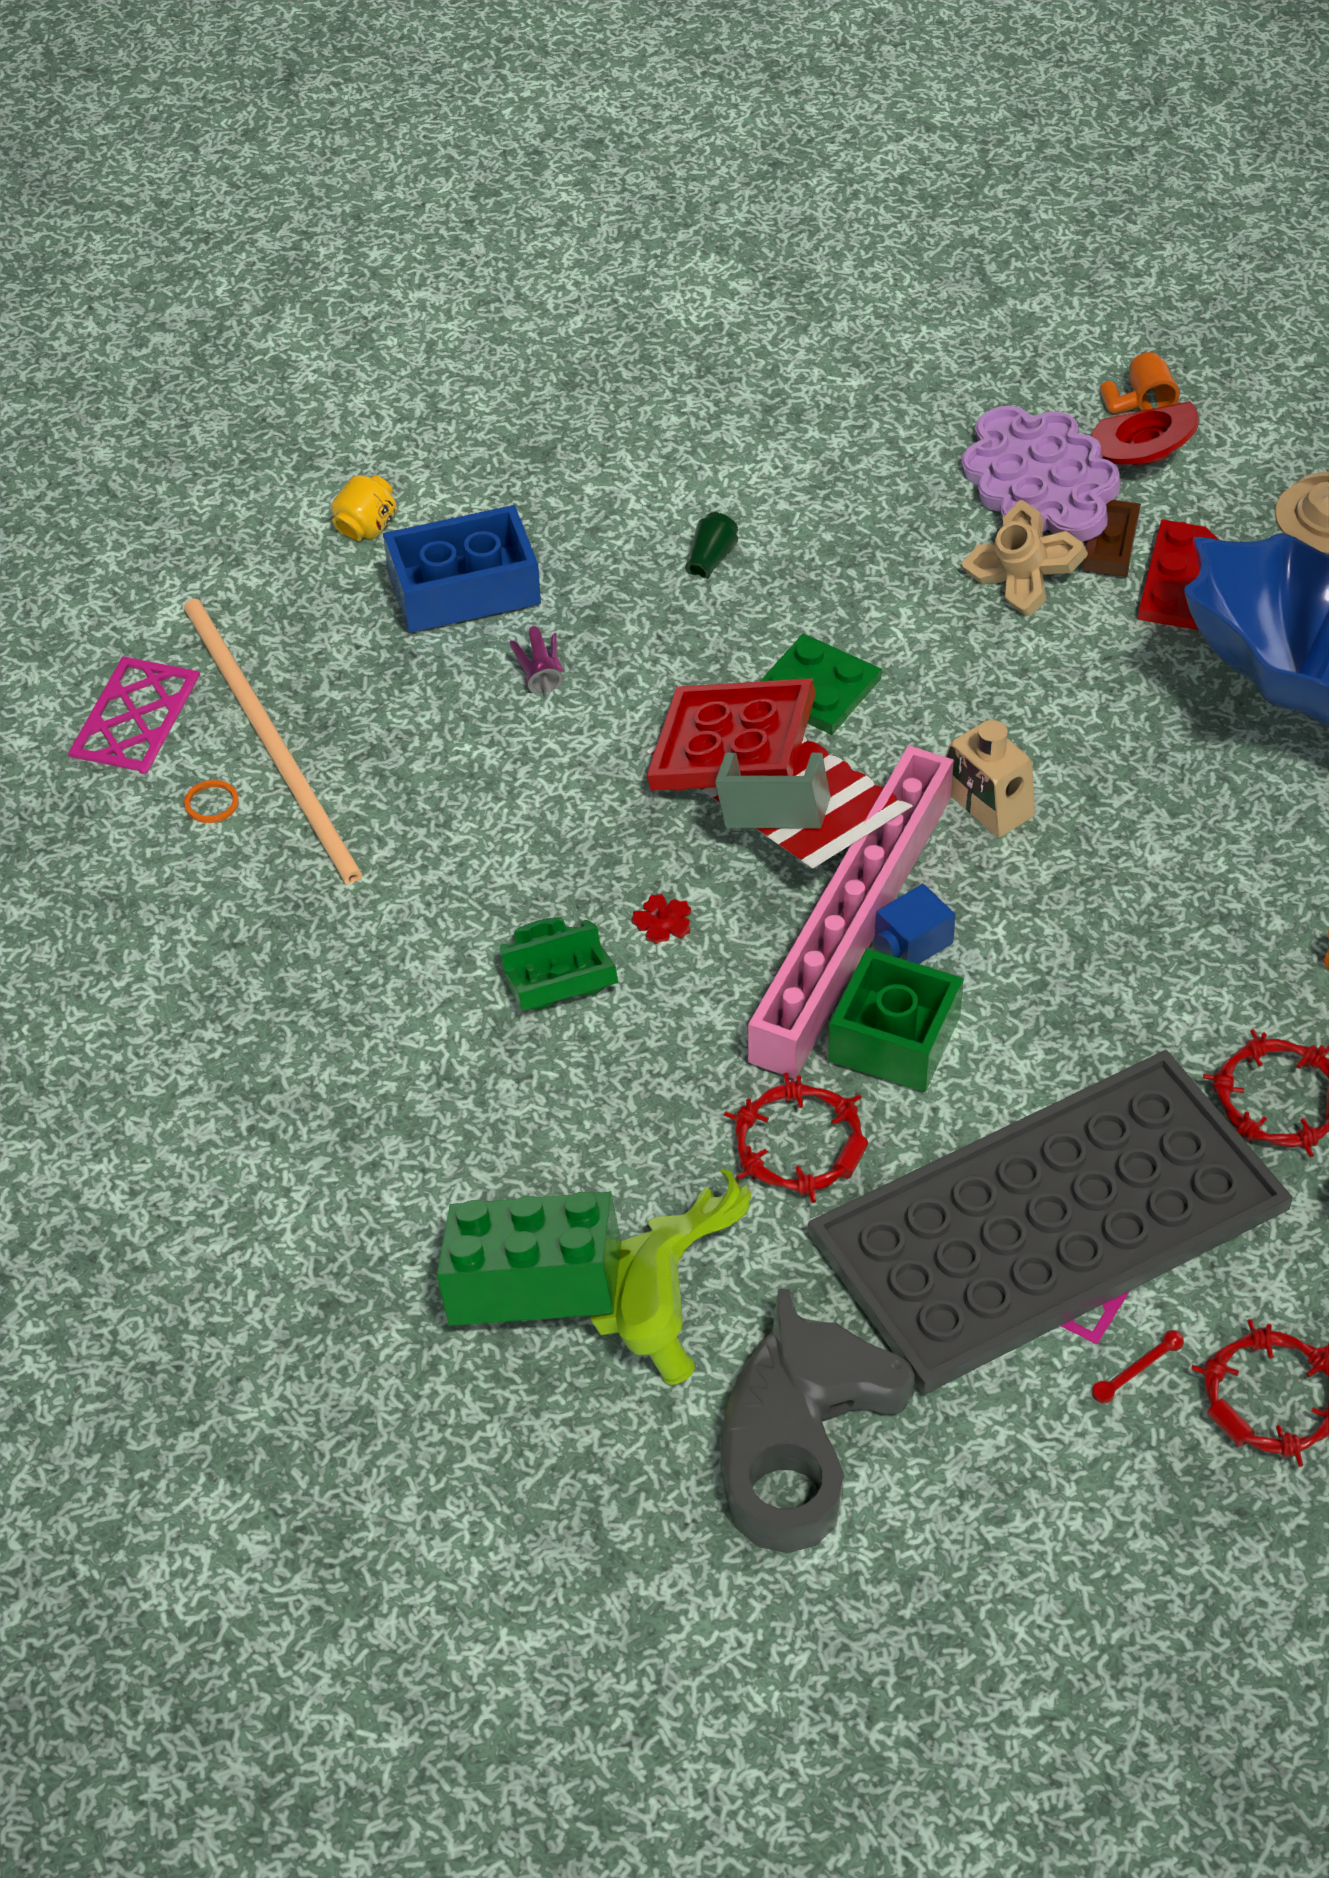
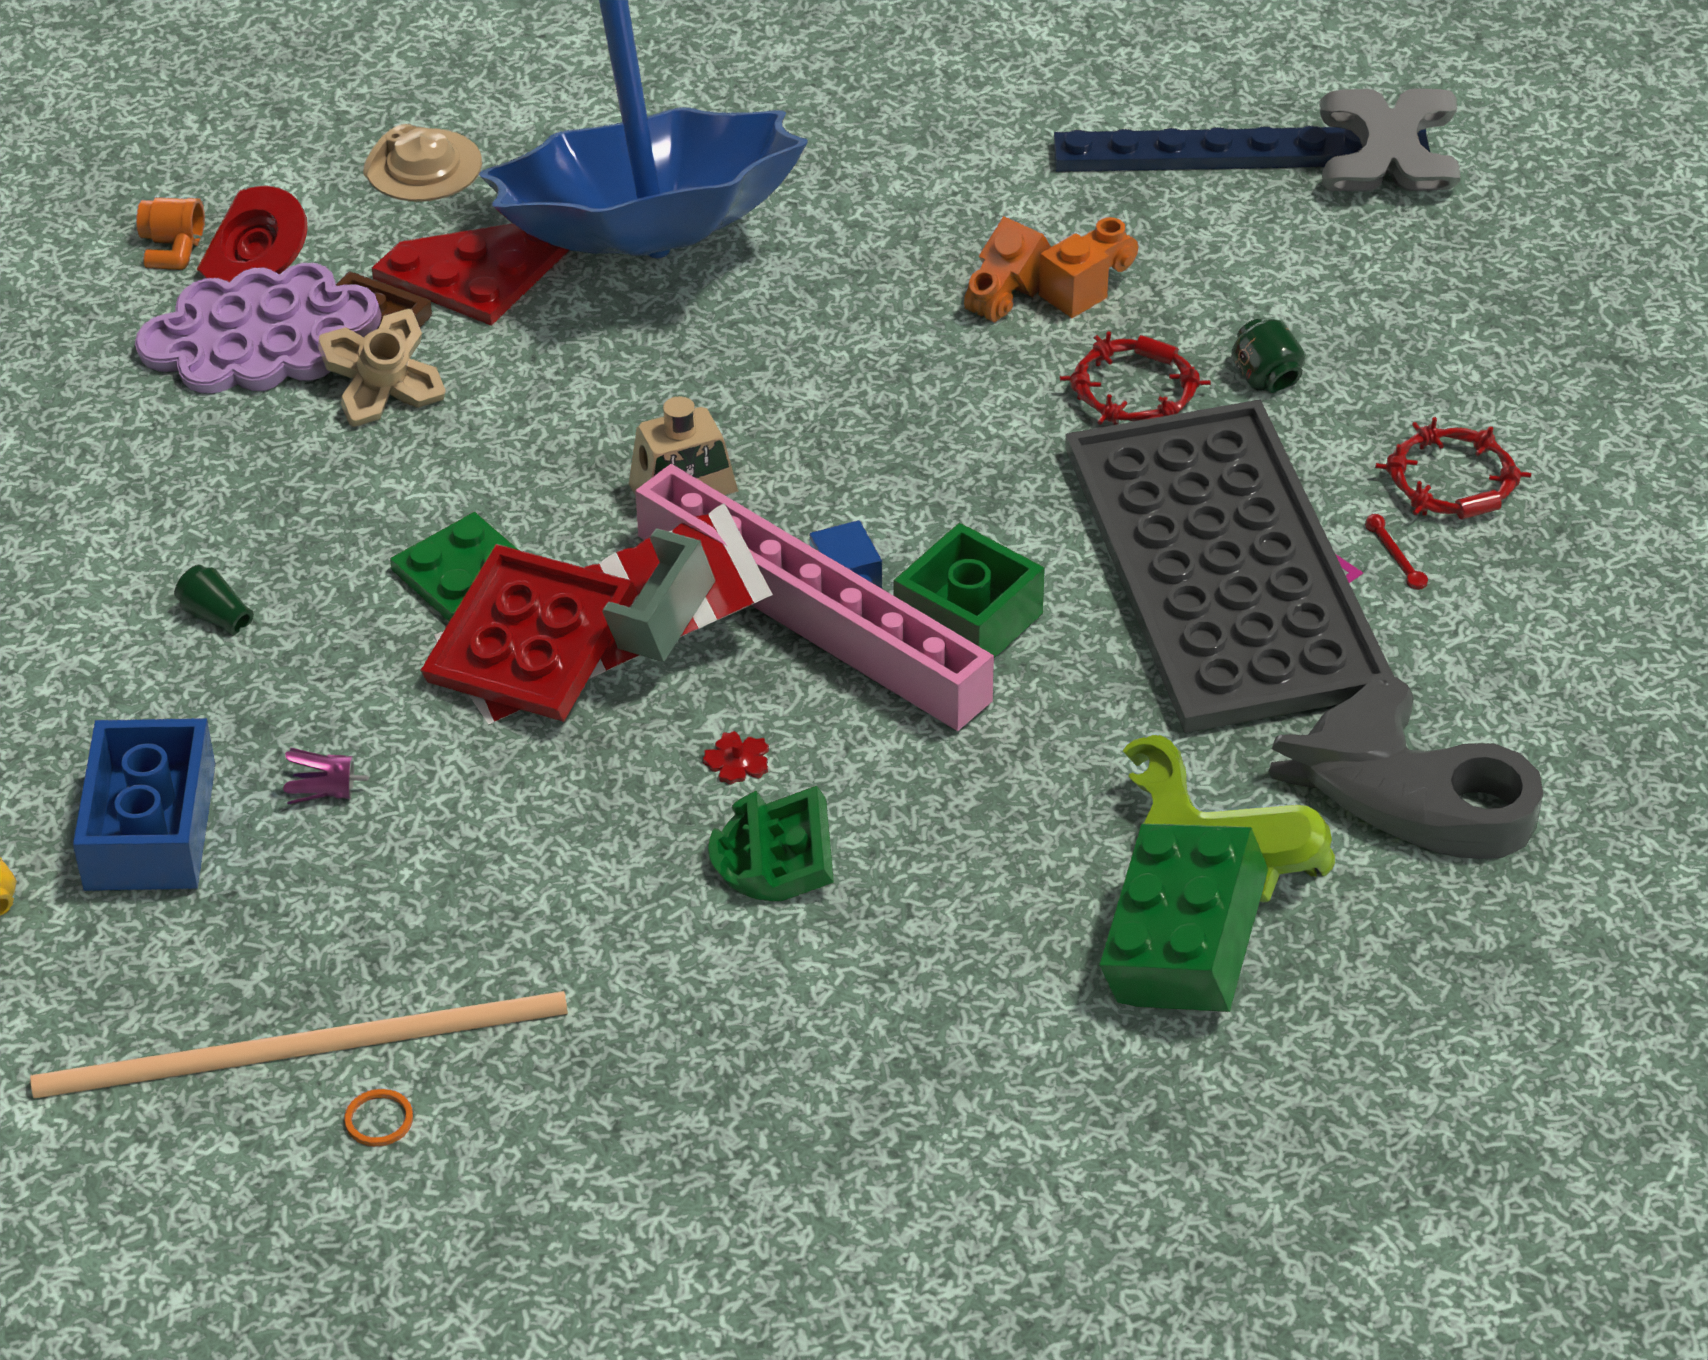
camera: 75 degrees left, 5 degrees down
(156, 736) = (189, 1215): dark pink window -> none
(804, 1184) = (1095, 670): red piece -> none

